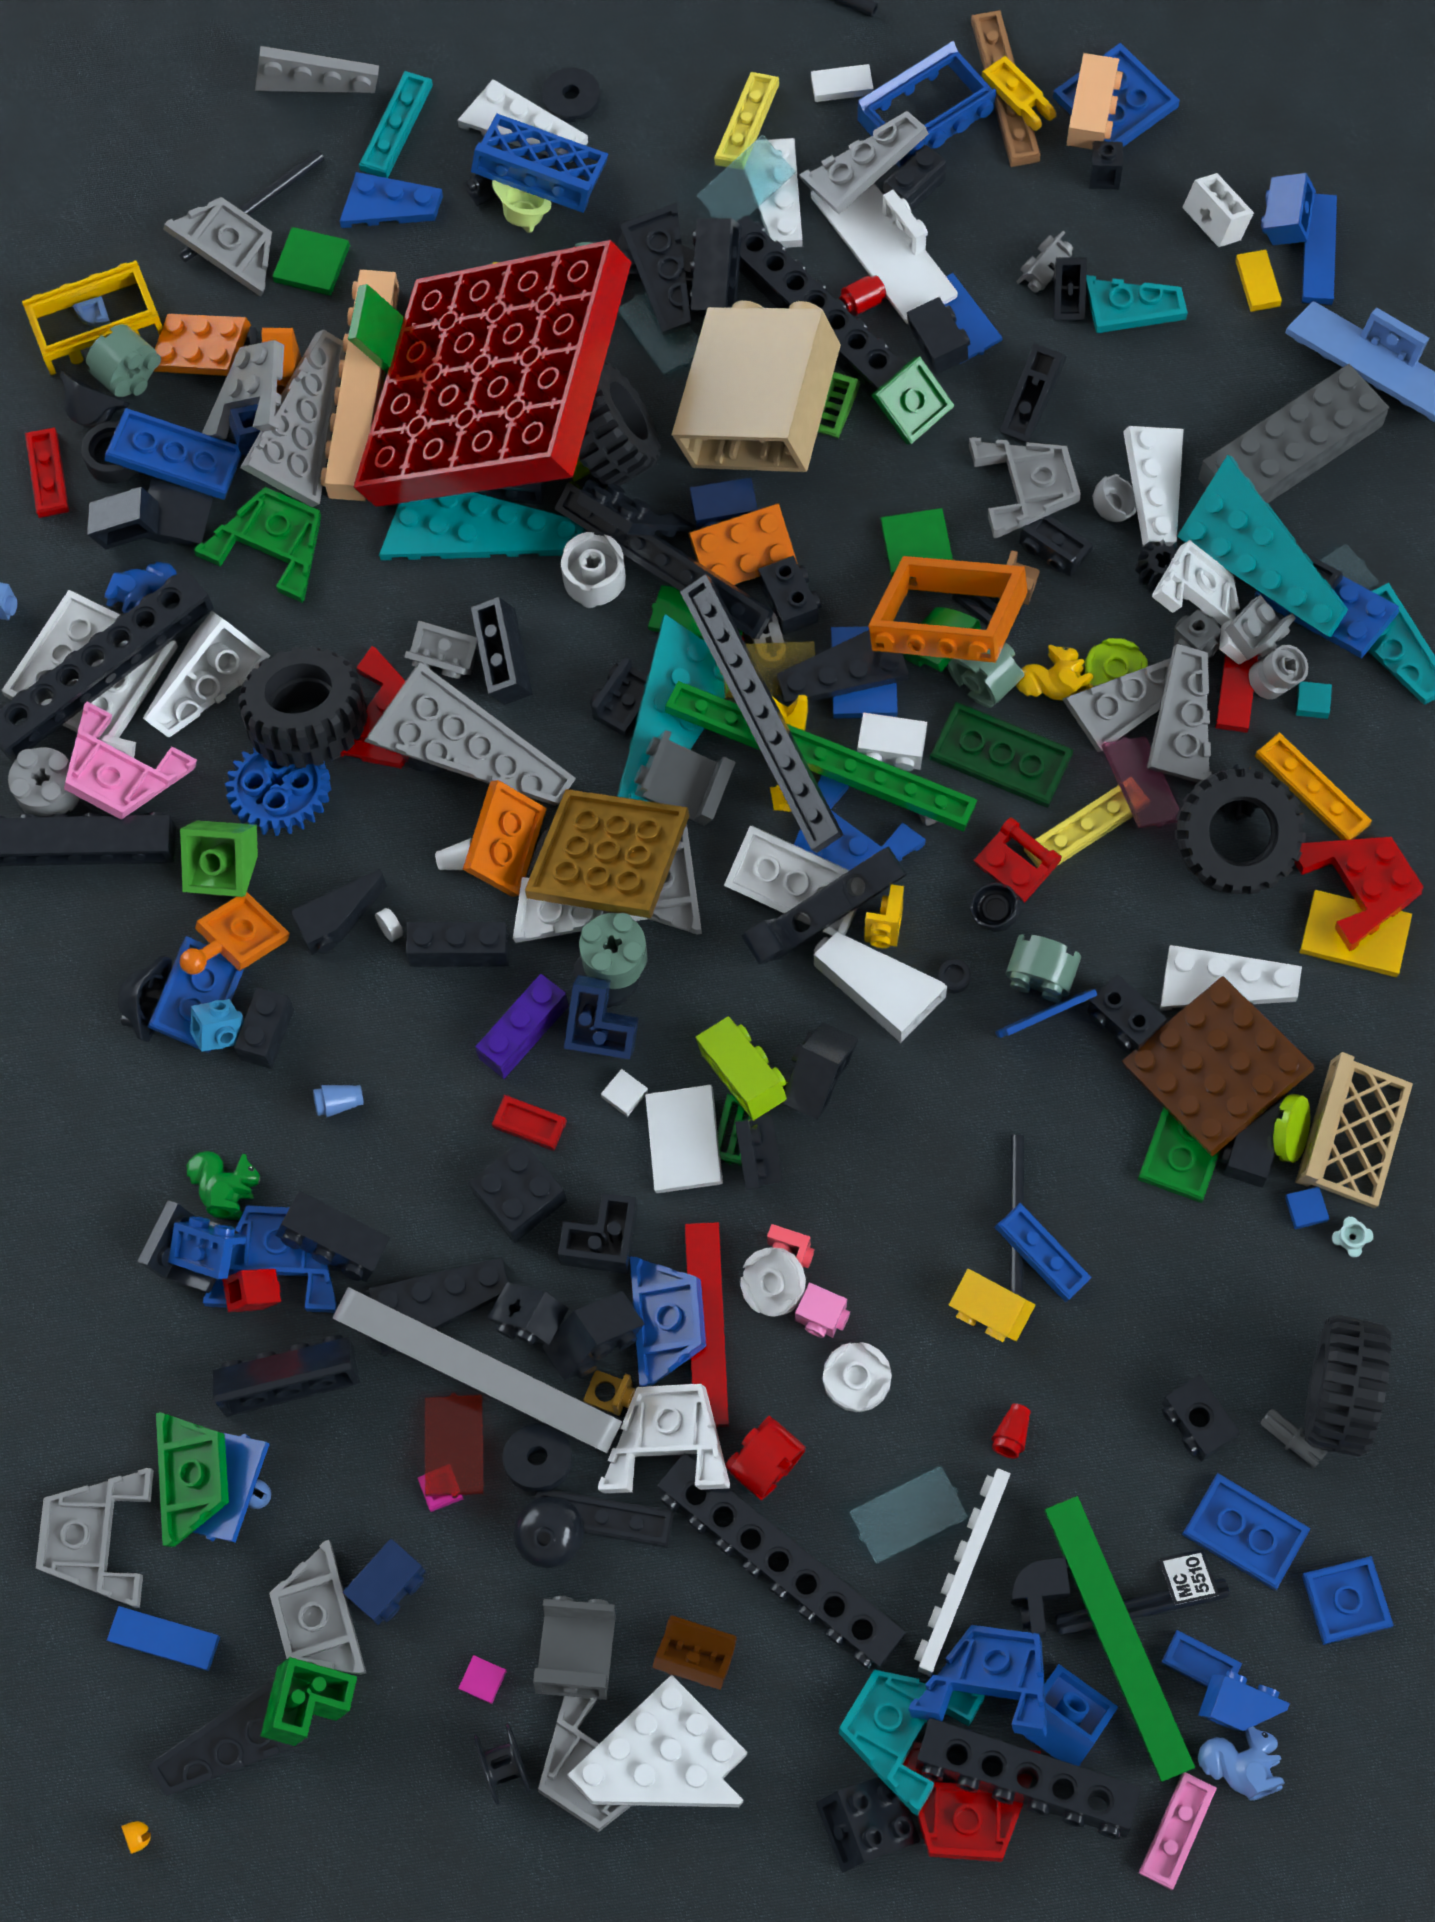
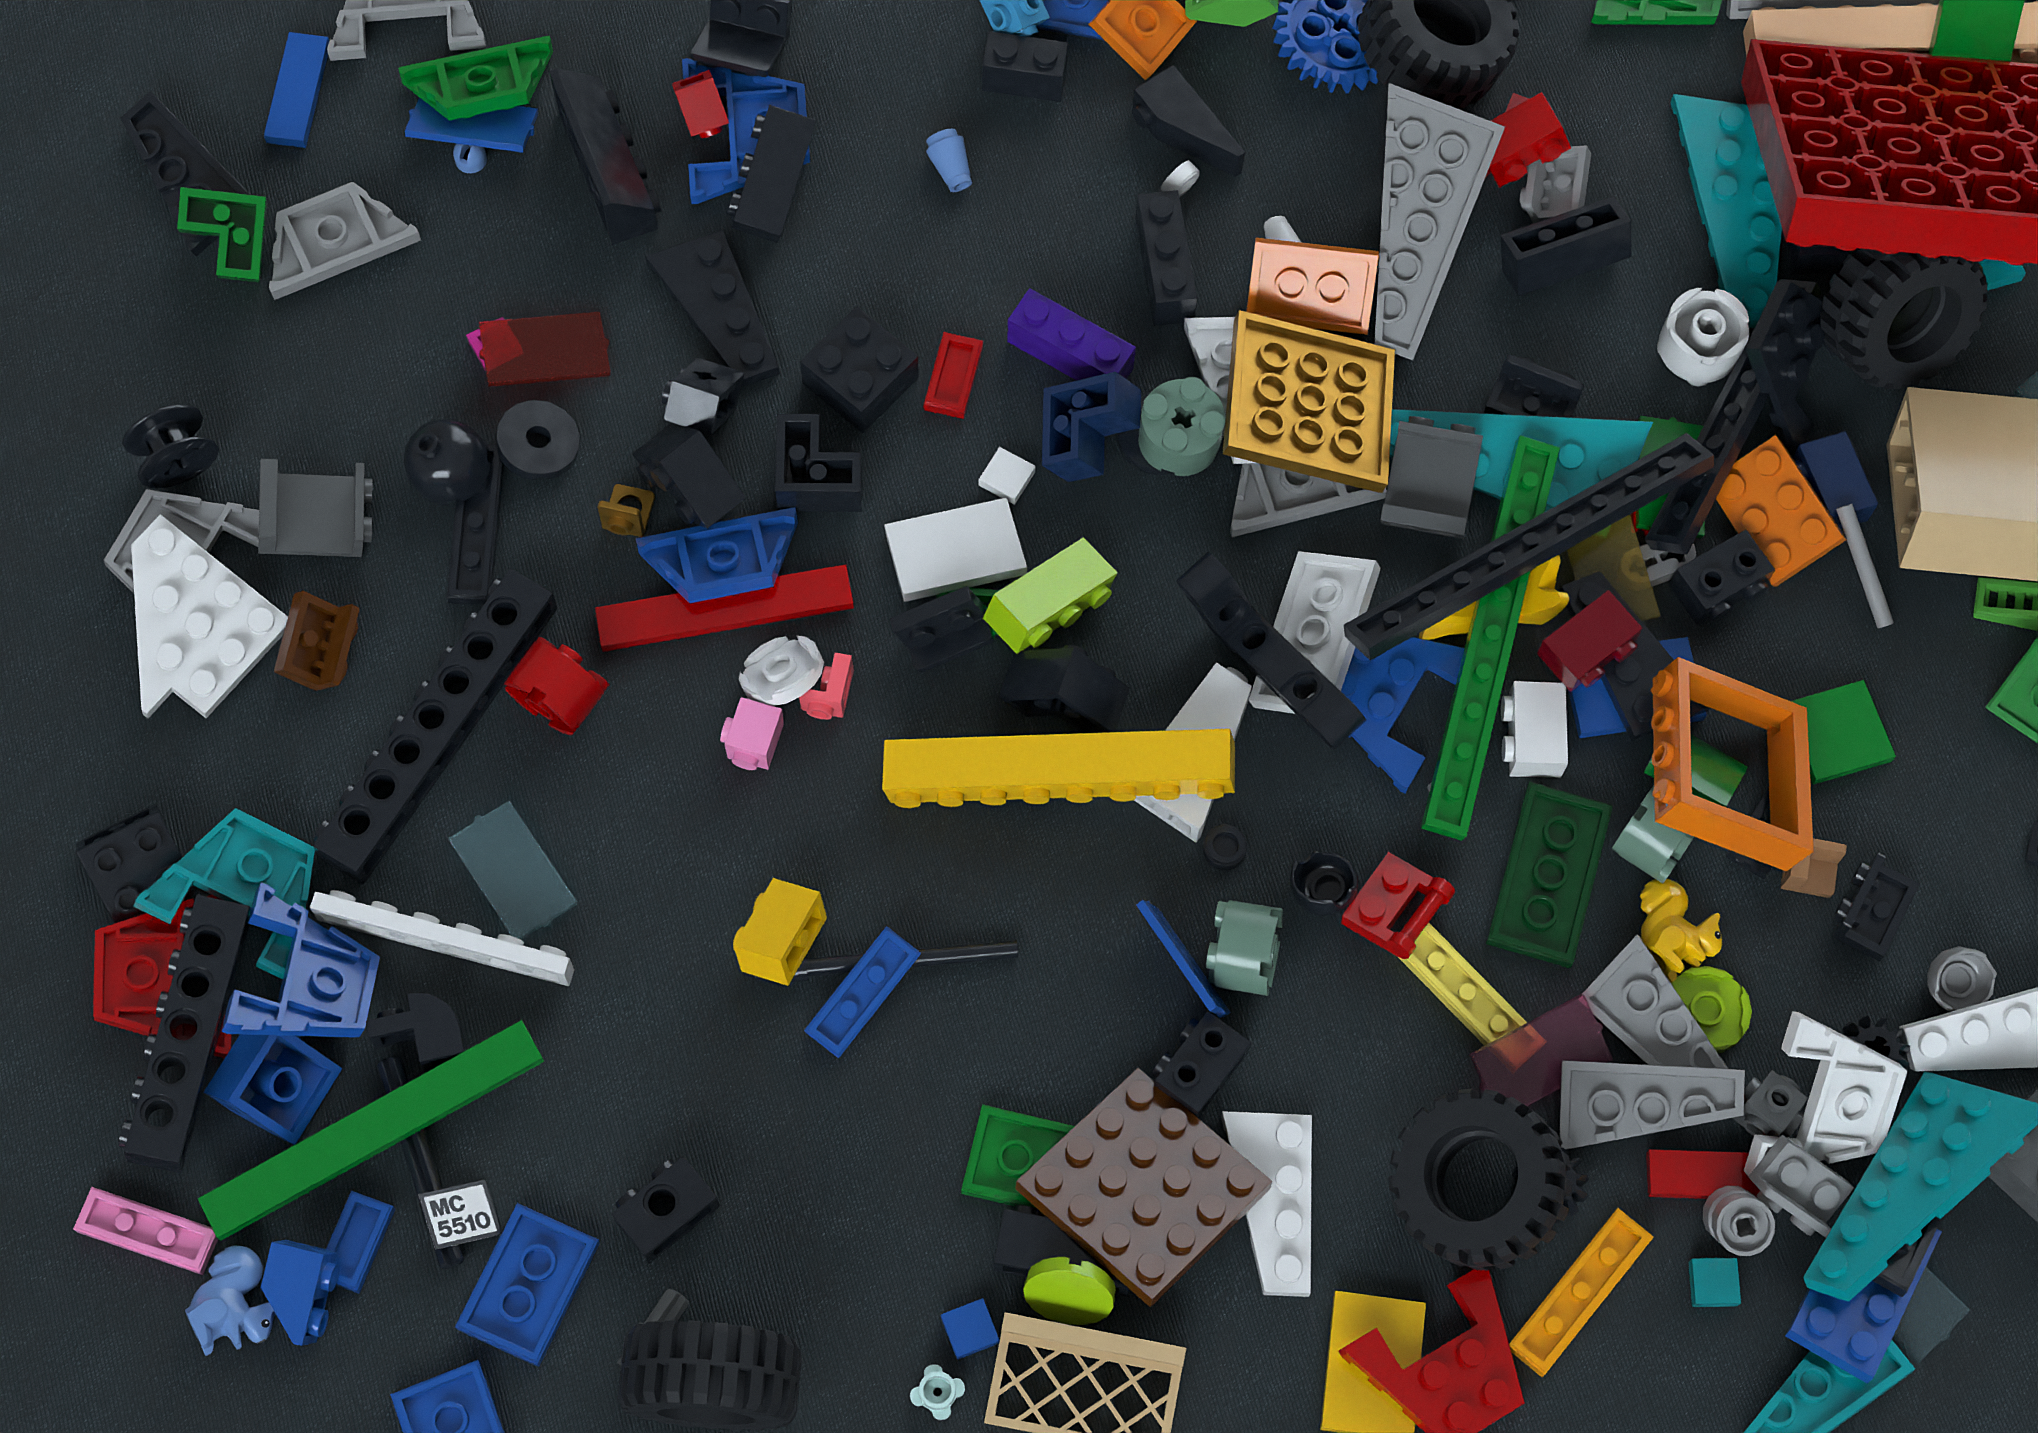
camera: 75 degrees right, 0 degrees up
(136, 1835) = (77, 97): light orange hinge -> none
(203, 1246) = (742, 36): blue bracket -> none
(219, 1189) = (822, 54): green animal -> none
(385, 1582) = (375, 299): dark blue brick -> none
(405, 651) = (1529, 135): none -> red brick
(477, 1370) = (632, 356): light grey beam -> none
(482, 1679) = (275, 421): dark pink tile -> none
(667, 1423) = (590, 577): white wing -> none
(795, 497) = (1864, 566): none -> light grey bar
(840, 686) = (1590, 642): none -> dark red brick
(857, 1376) = (678, 790): white tile -> none
(884, 928) = (1281, 750): yellow bracket -> none
(887, 1078) = (1059, 767): none -> yellow brick
(1012, 1432) = (625, 979): red cone -> none
(1040, 478) = (1964, 878): light grey wing -> none

